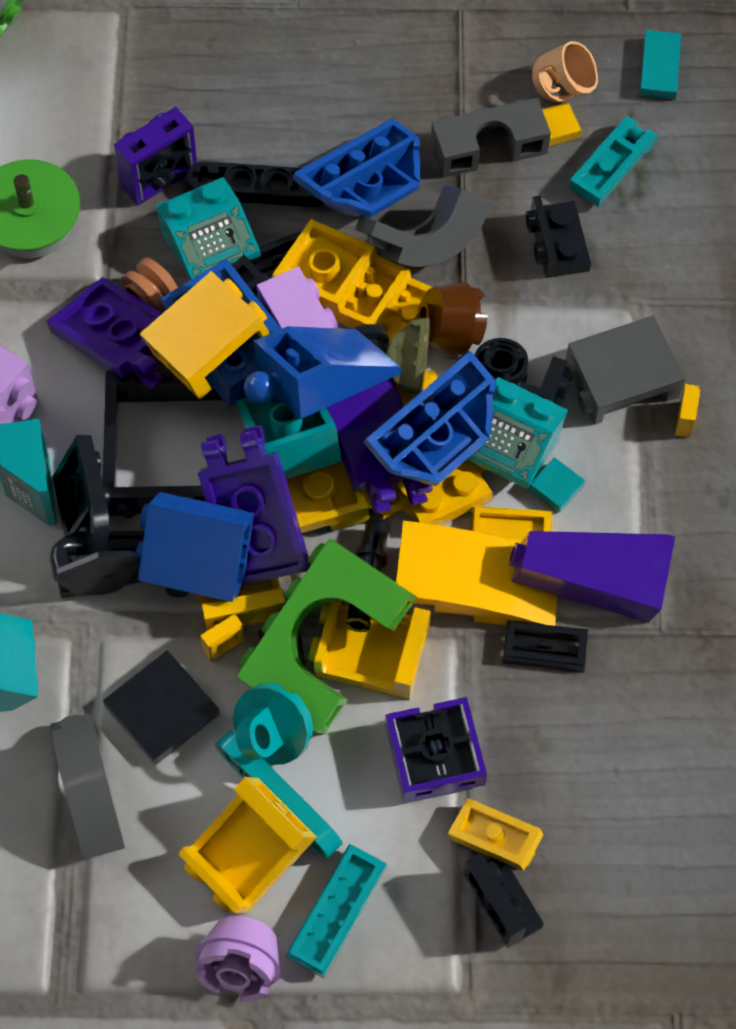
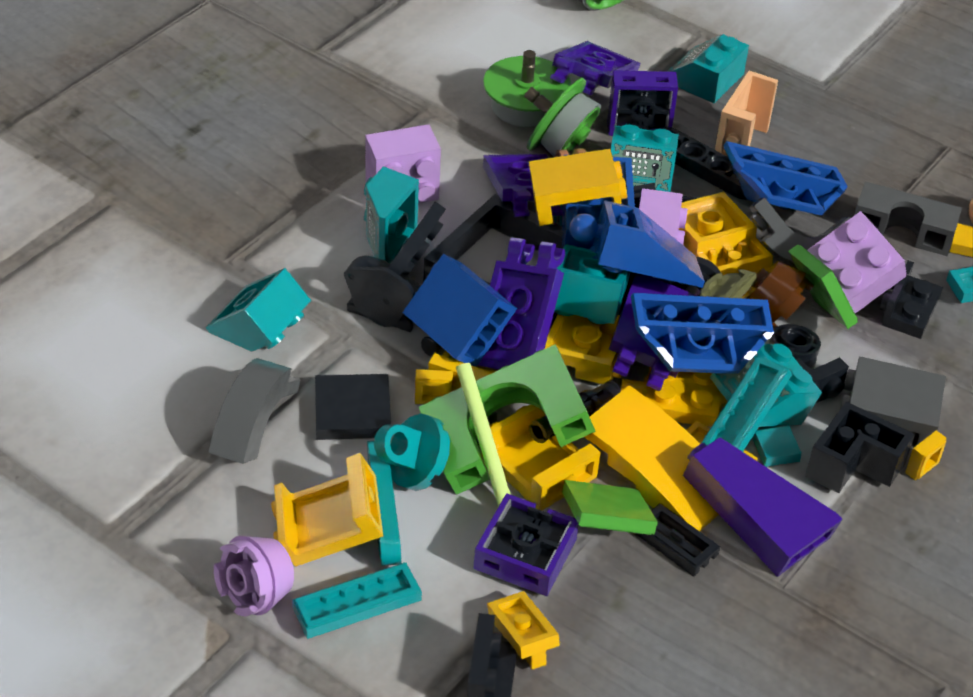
camera: 35 degrees right, 20 degrees down
(70, 131) = (592, 64): none -> dark purple tile
(105, 233) = (565, 121): none -> piece
(172, 55) = (712, 67): none -> teal slope
(272, 135) = (747, 110): none -> light nougat panel
(322, 668) = (483, 431): none -> yellowish green bar
(477, 662) = (609, 507): none -> bright green tile
(488, 283) = (826, 287): none -> bright green tile
(500, 239) = (860, 260): none -> lavender brick
(522, 476) = (749, 403): none -> teal plate
(629, 441) = (858, 443): none -> black brick

